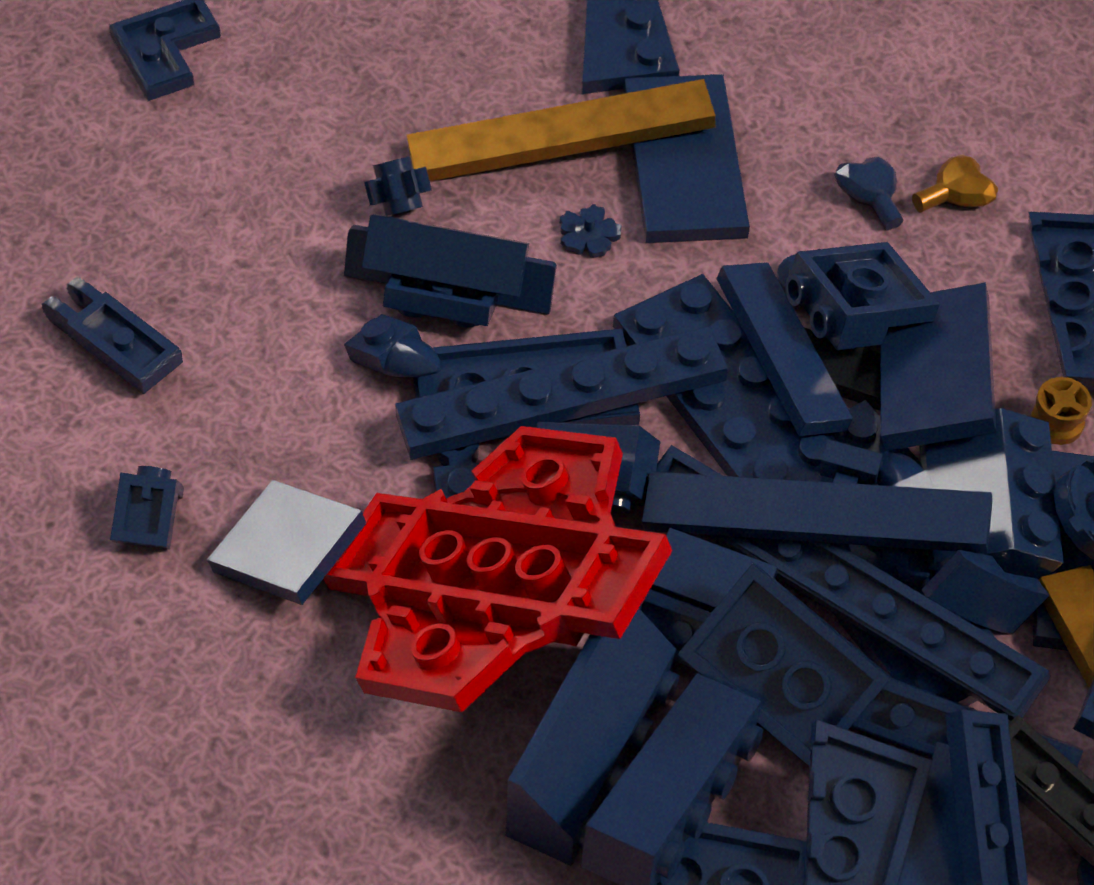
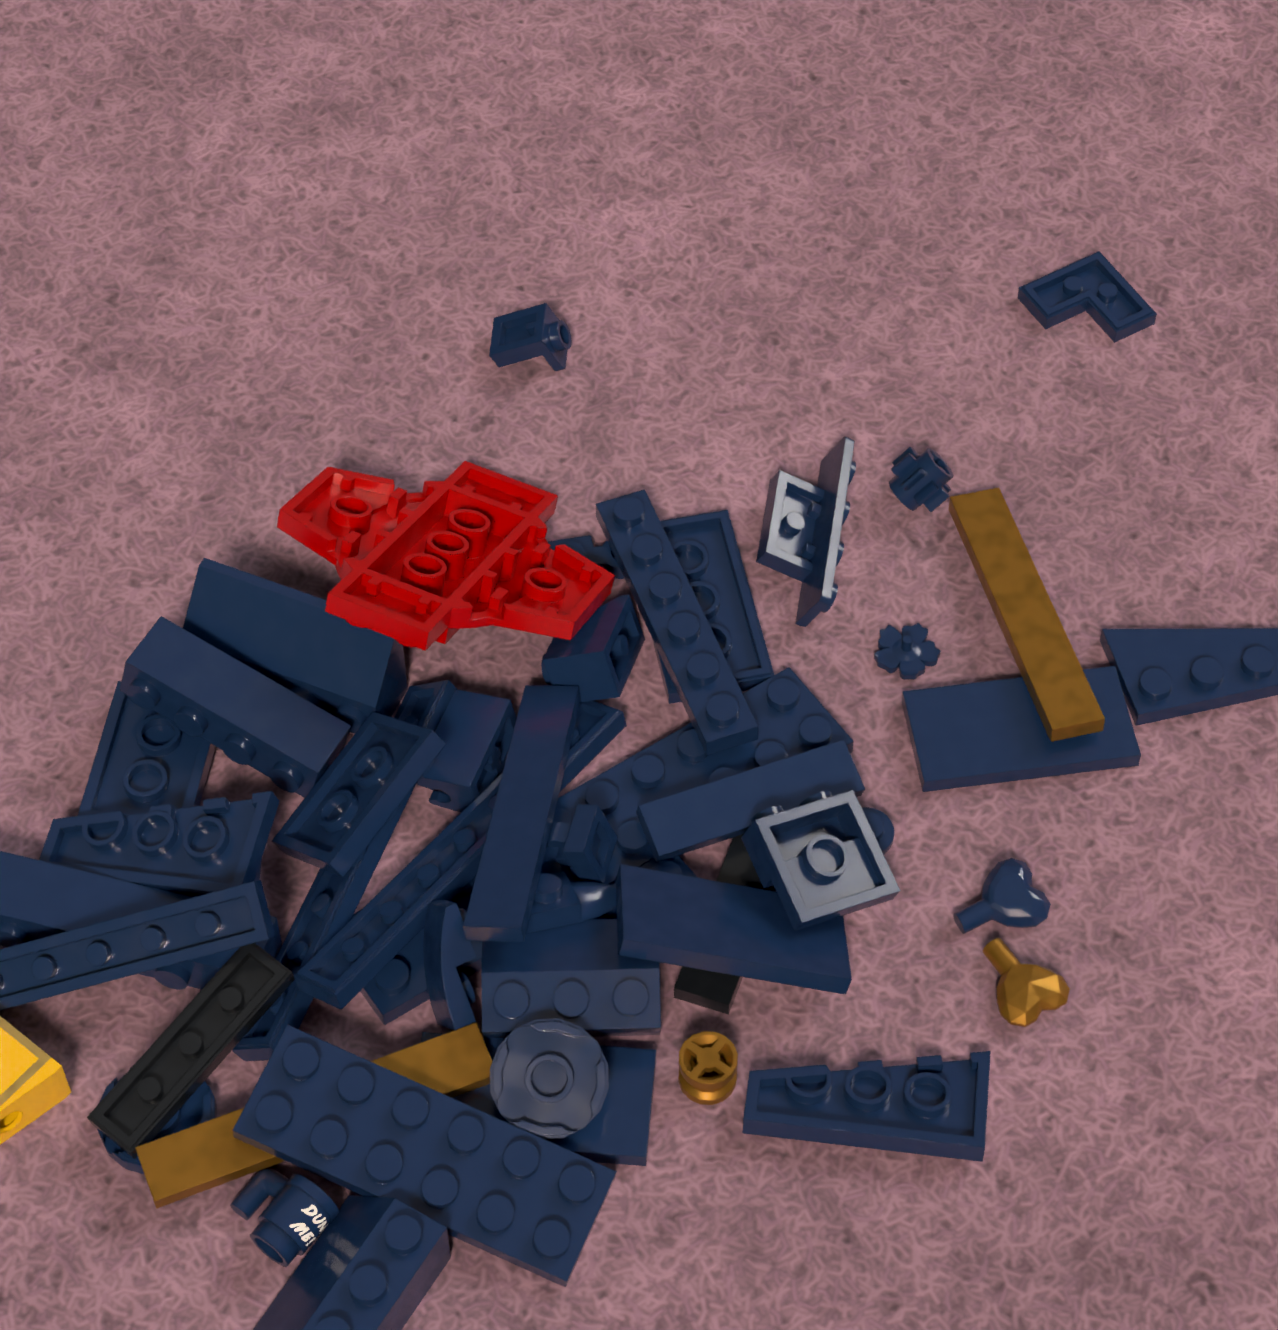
camera: 90 degrees right, 0 degrees up
(114, 335) = (717, 297): dark blue hinge -> none
(287, 542) = (497, 435): tile -> none
(393, 349) = (723, 493): dark blue plate -> none
(445, 255) = (820, 510): dark blue tile -> none

